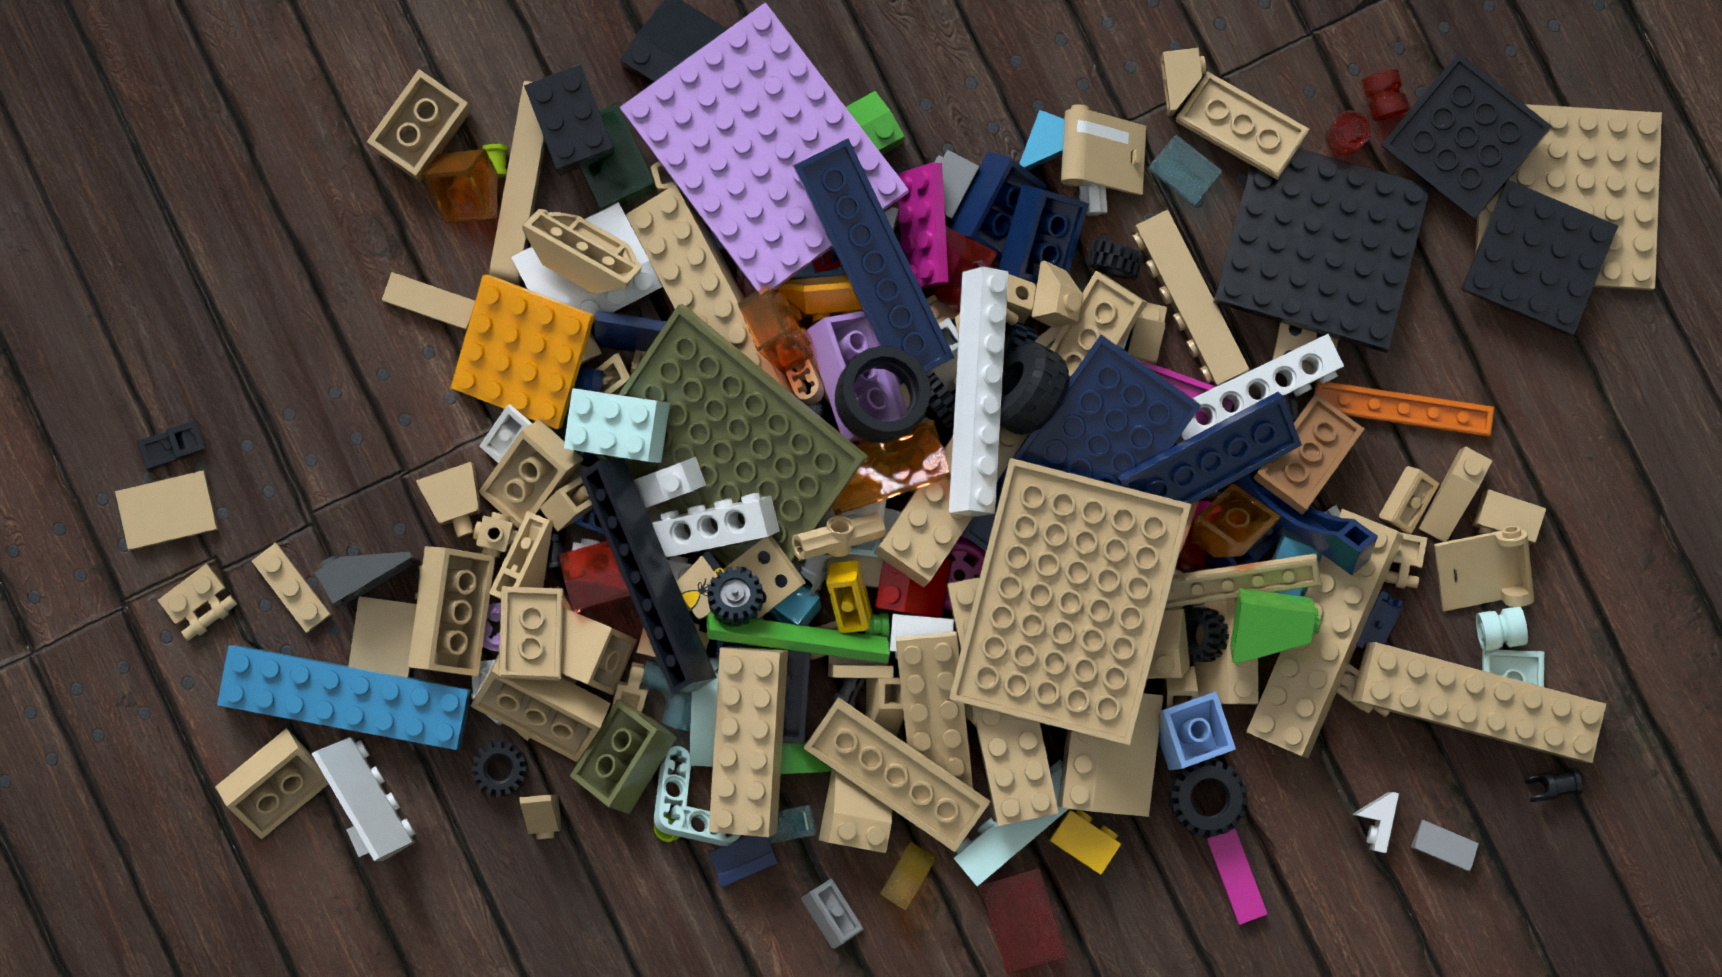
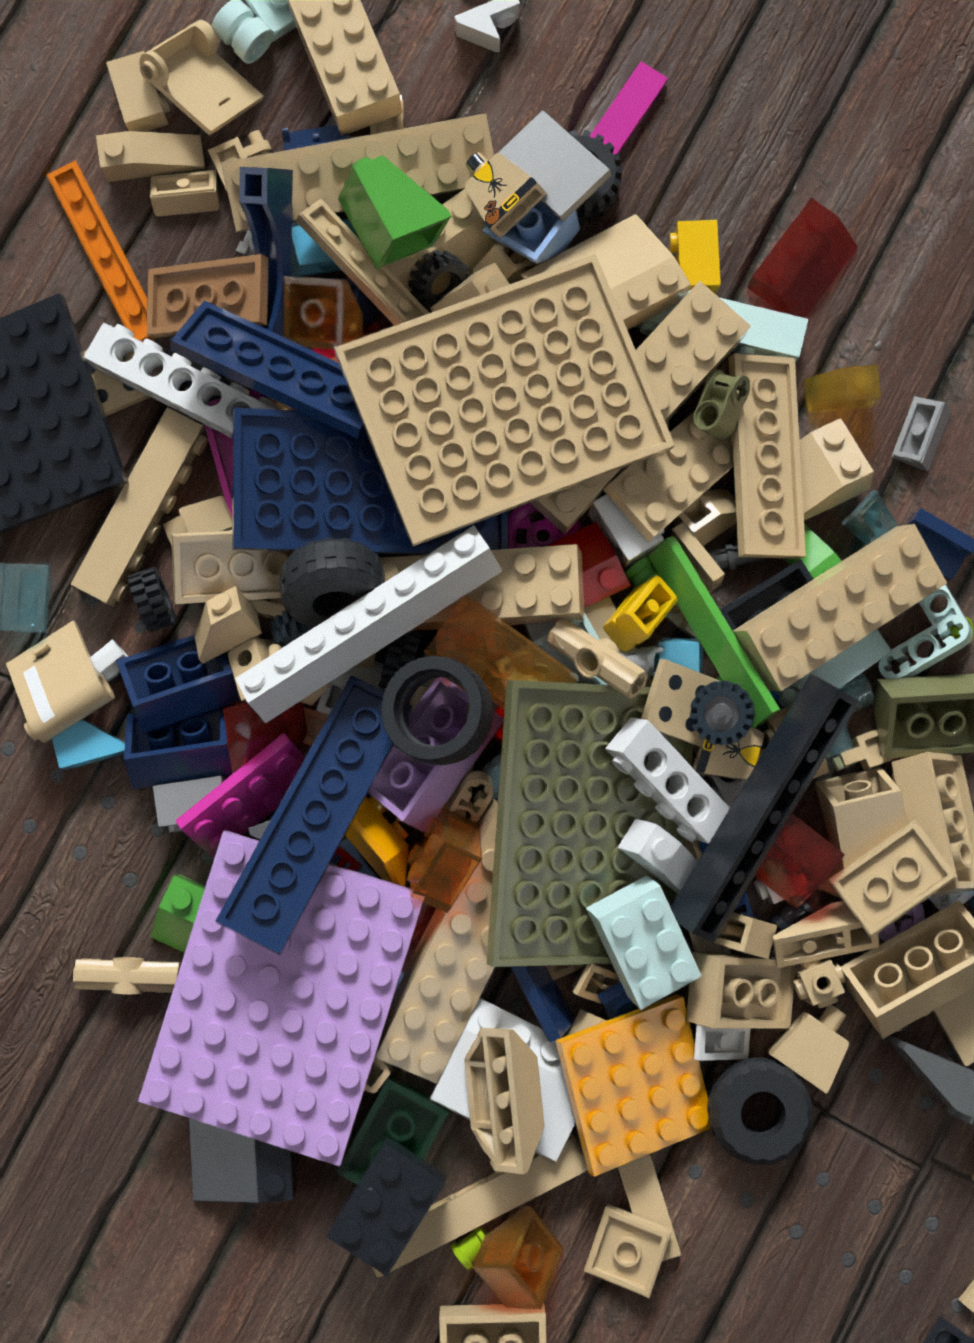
camera: 125 degrees left, 0 degrees up
(412, 265) = (628, 1250): none -> tan tile
(418, 405) = (789, 1126): none -> black tyre
(859, 55) = (125, 975): none -> tan piece
(957, 762) = (721, 402): none -> olive piece
(1226, 776) = (557, 164): none -> tile
(1232, 720) = (501, 191): none -> tan torso

